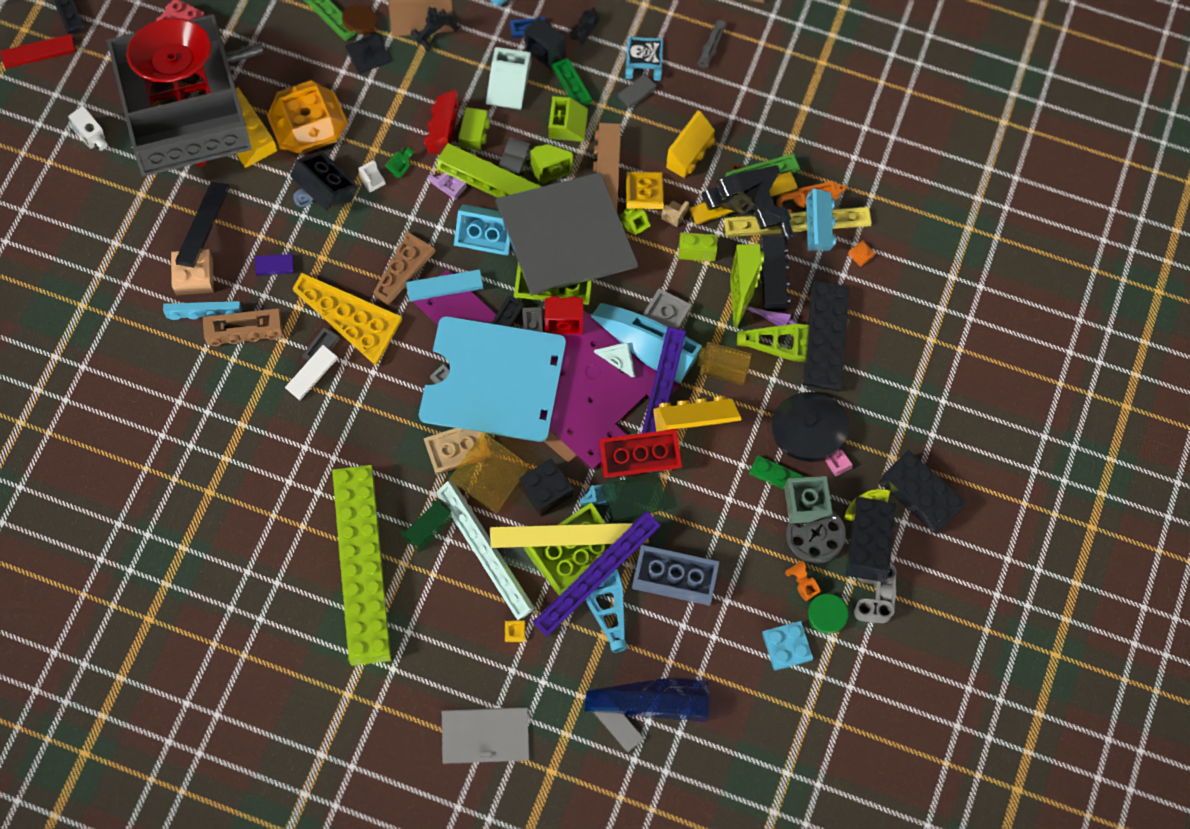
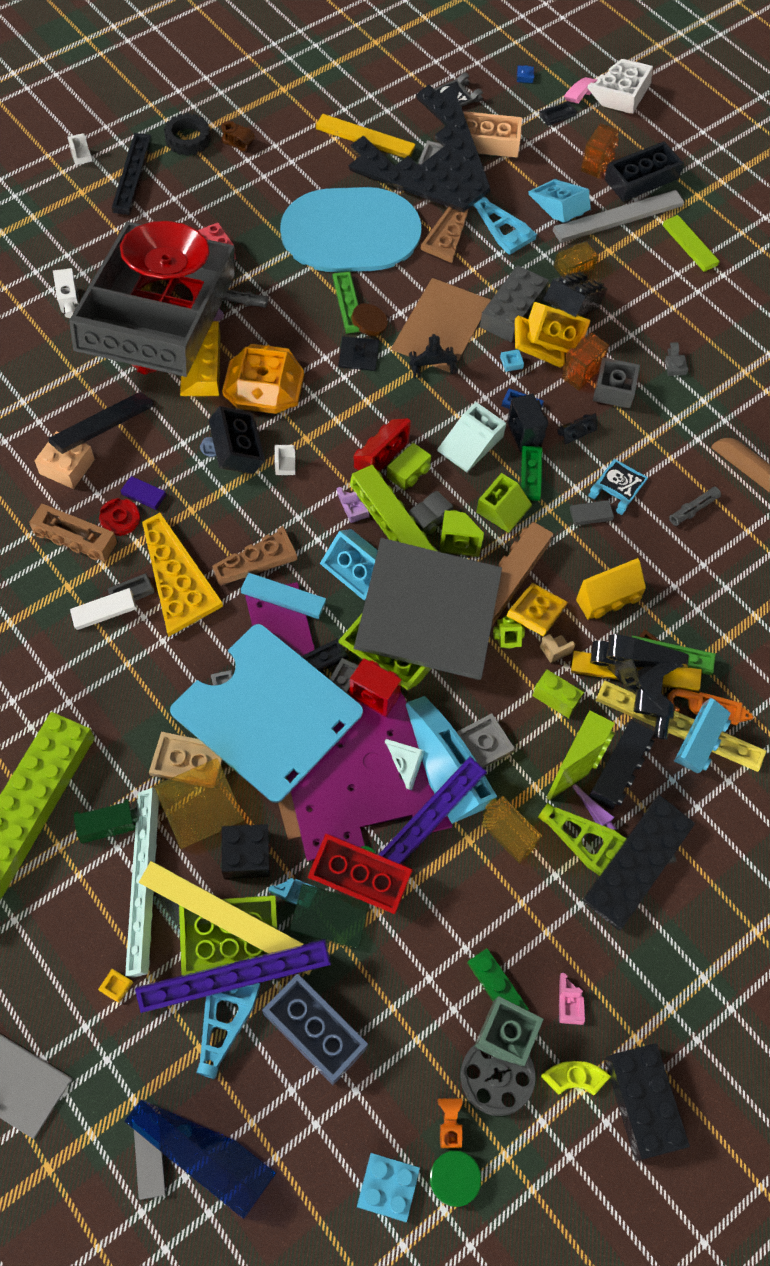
camera: 30 degrees right, 5 degrees down
(38, 51) = (78, 213): red tile -> none
(203, 309) = (48, 497): medium azure plate -> none
(268, 293) = (119, 516): none -> red tile
(398, 162) = (318, 461): green plate -> none
(695, 414) = (445, 866): yellow slope -> none
(810, 426) = (563, 951): black dish -> none
(861, 253) = (730, 795): orange plate -> none
(871, 539) = (551, 1124): black brick -> none
(884, 599) = (535, 1193): light grey beam -> none

